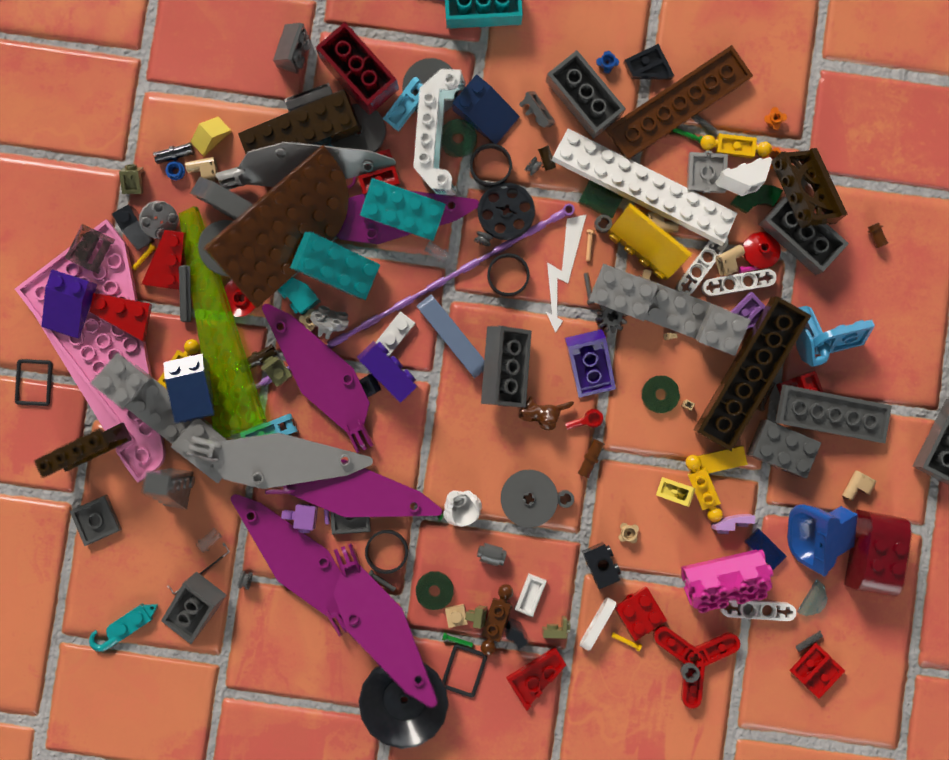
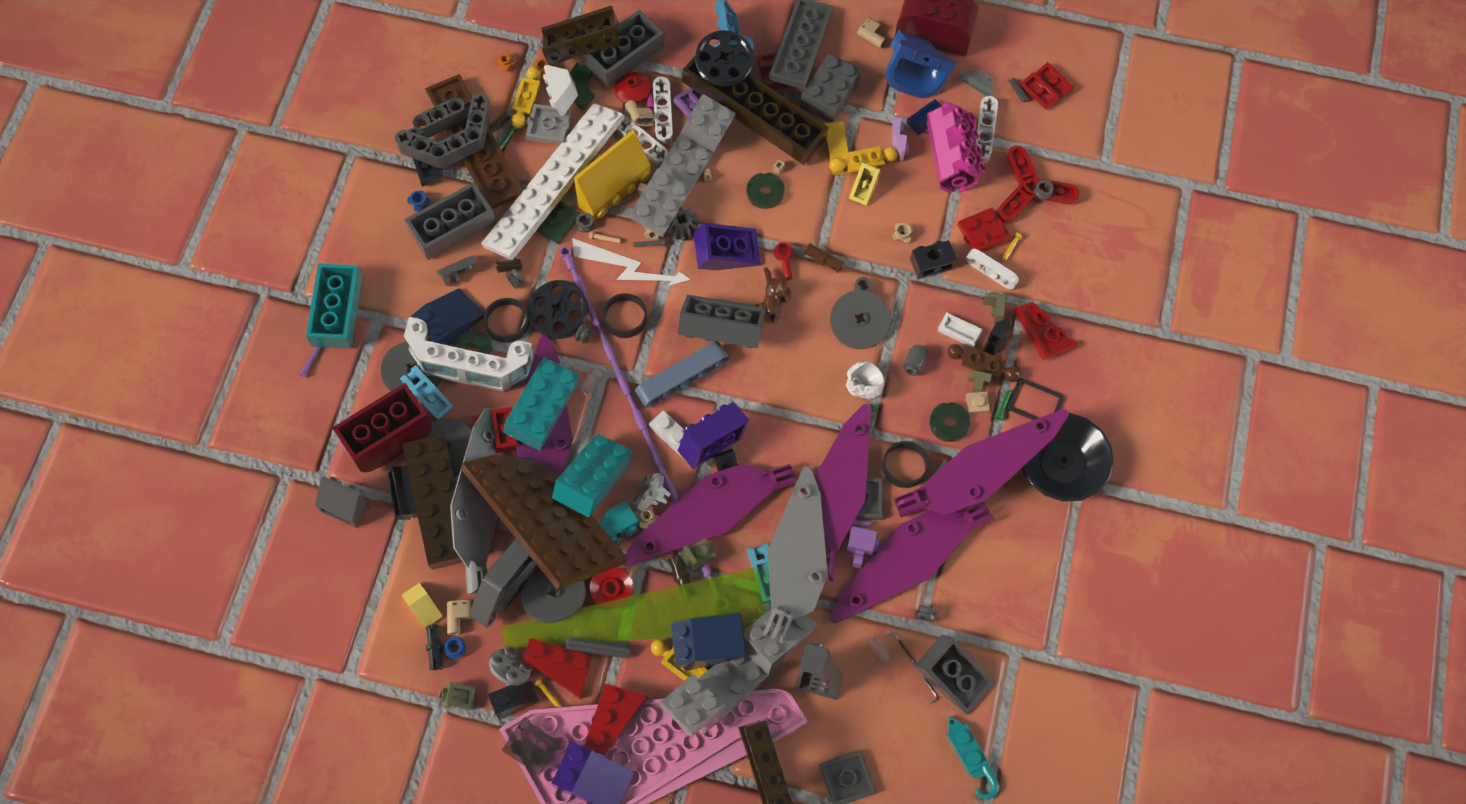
camera: 85 degrees left, 20 degrees down
(694, 54) = (412, 140): none -> dark grey piece
(784, 336) = (721, 65): none -> black wedge

